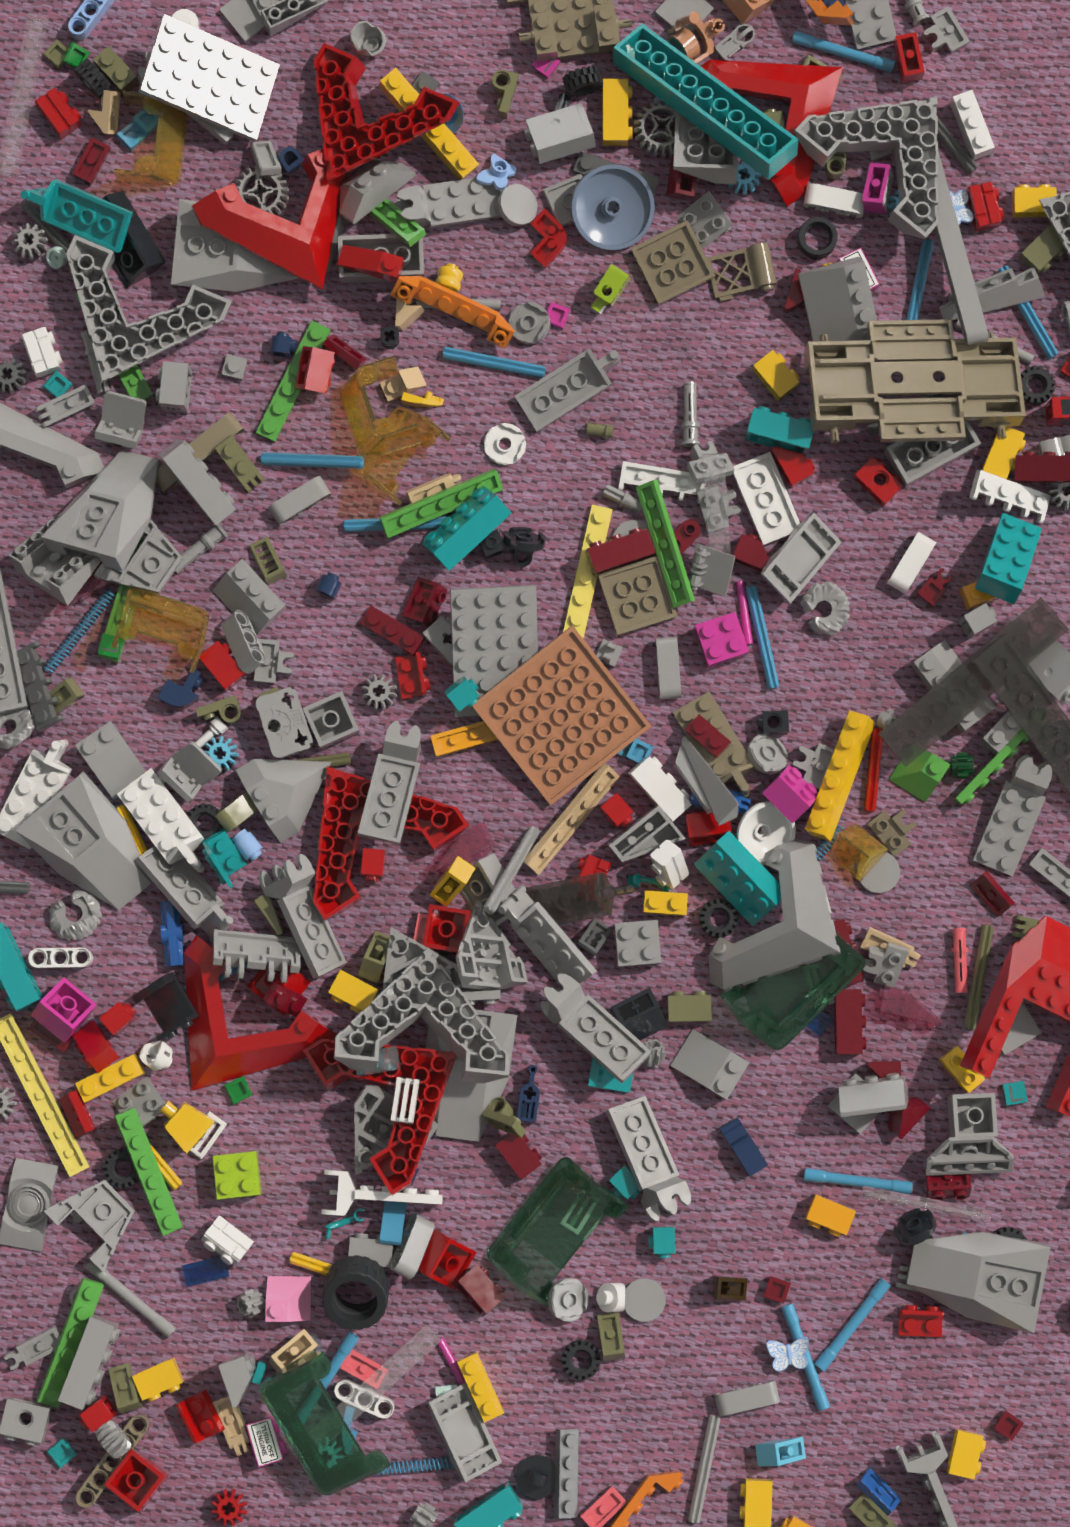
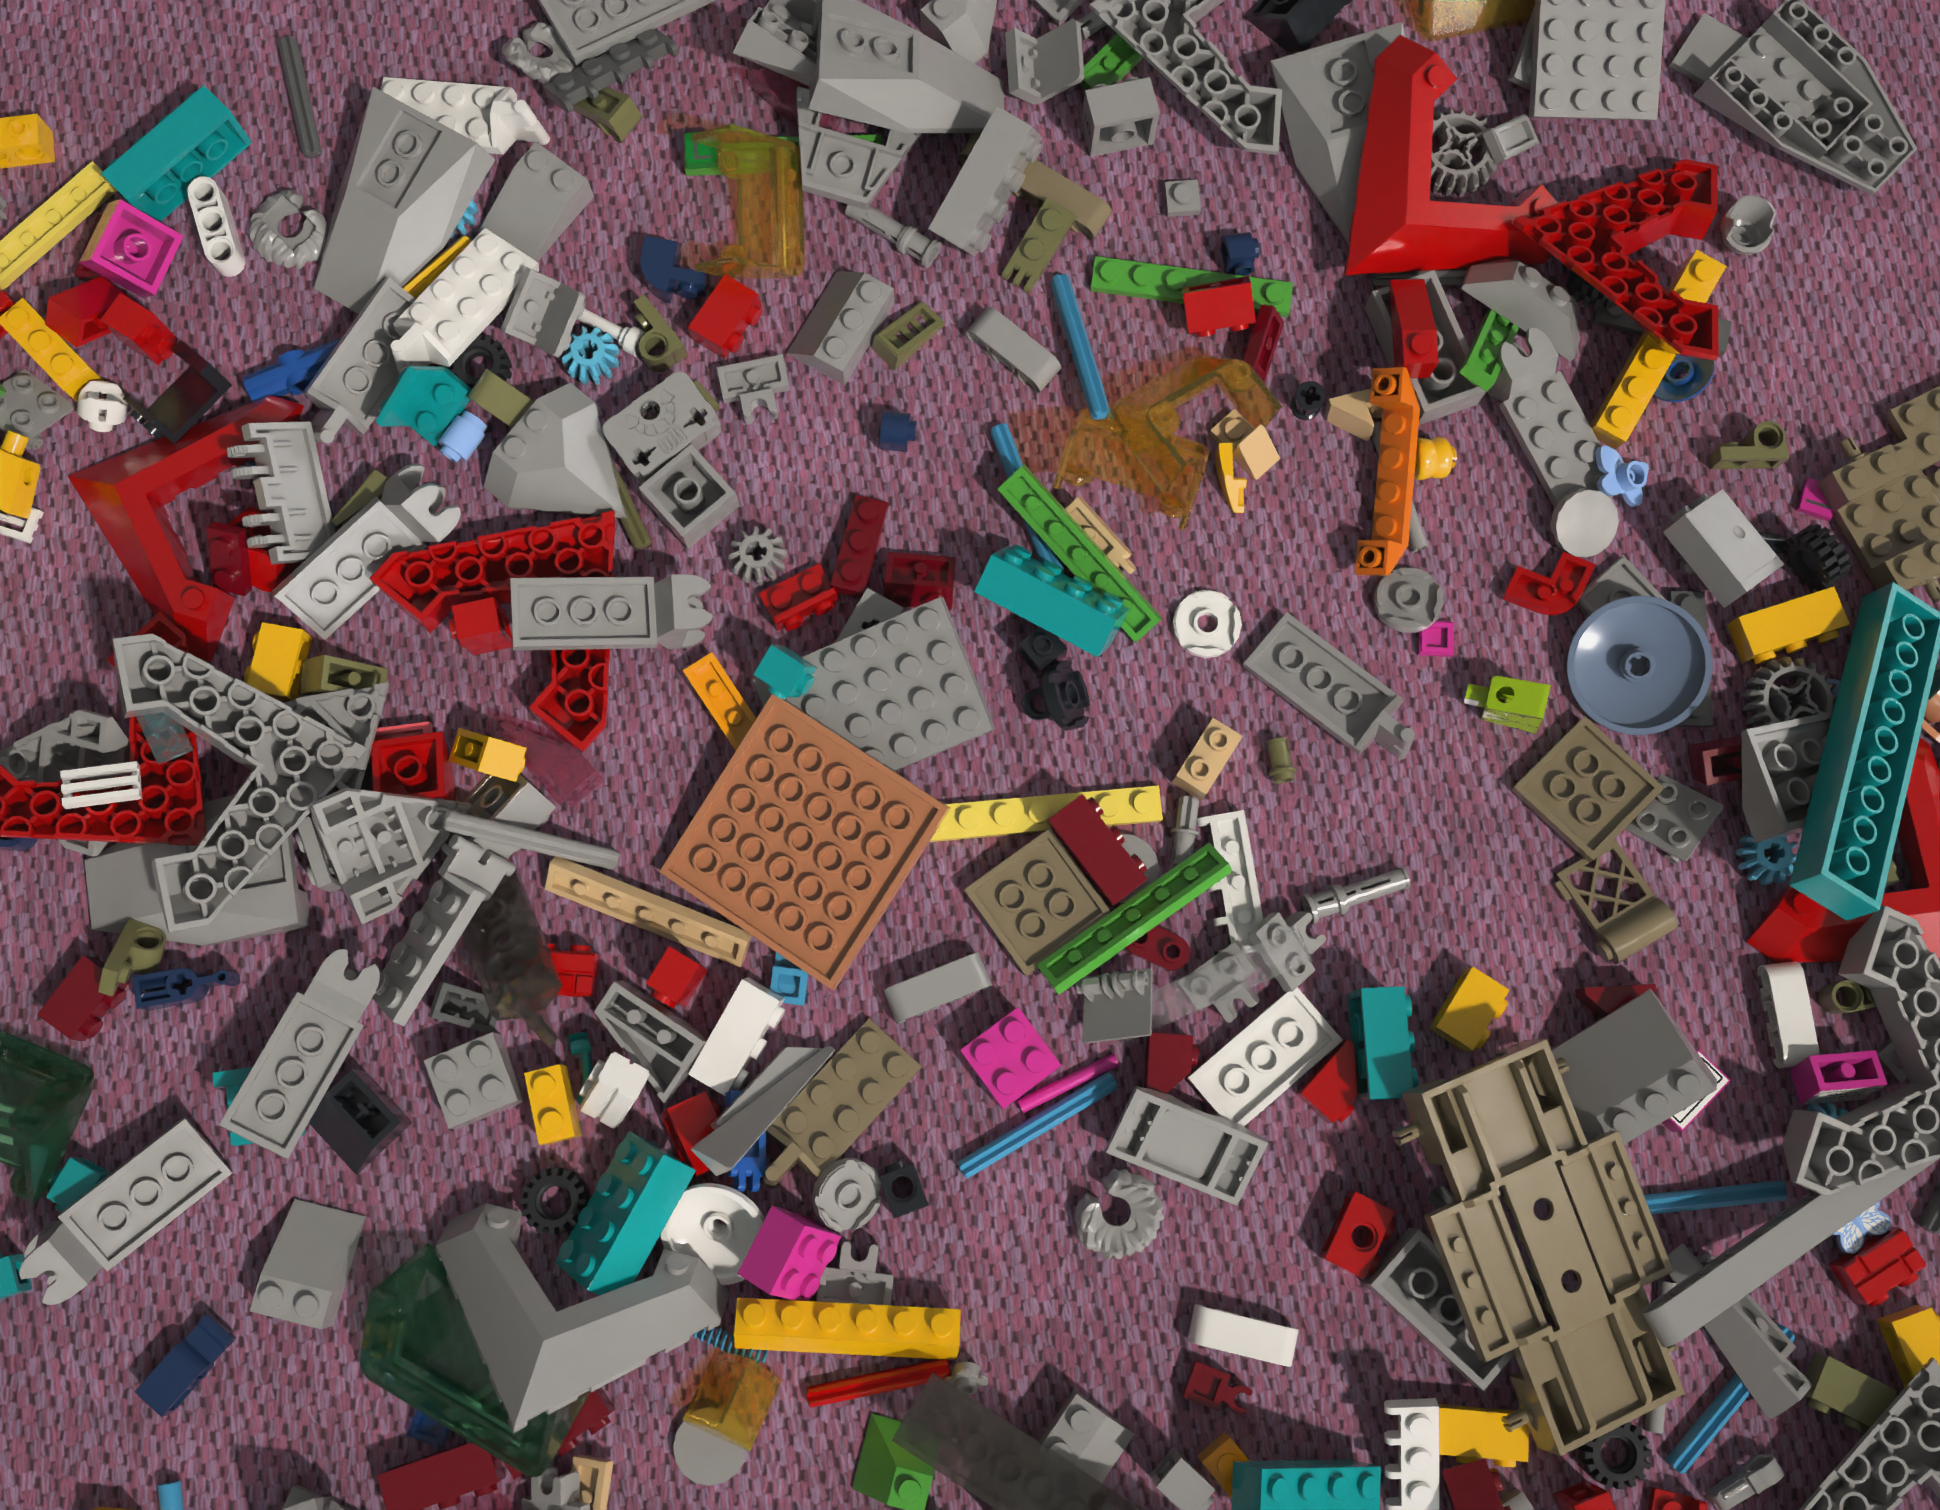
camera: 75 degrees right, 5 degrees down
(78, 628) = (710, 102): dark azure piece -> none
(238, 1090) = (84, 543): green tile -> none
(243, 641) = (769, 332): light grey beam -> none
(289, 159) = (1522, 172): dark blue plate -> none
(493, 362) = (1327, 567): dark azure axle -> none
(586, 471) = (1207, 759): none -> tan brick
(609, 653) = (932, 887): light grey tile -> none
(657, 1055) = (304, 1163): light grey gear -> none
(689, 1007) = (394, 1199): olive brick -> none
(707, 736) = (843, 1086): dark red plate -> none
(822, 222) = (1742, 997): black tyre -> none
(892, 831) = (786, 1449): dark tan plate -> none

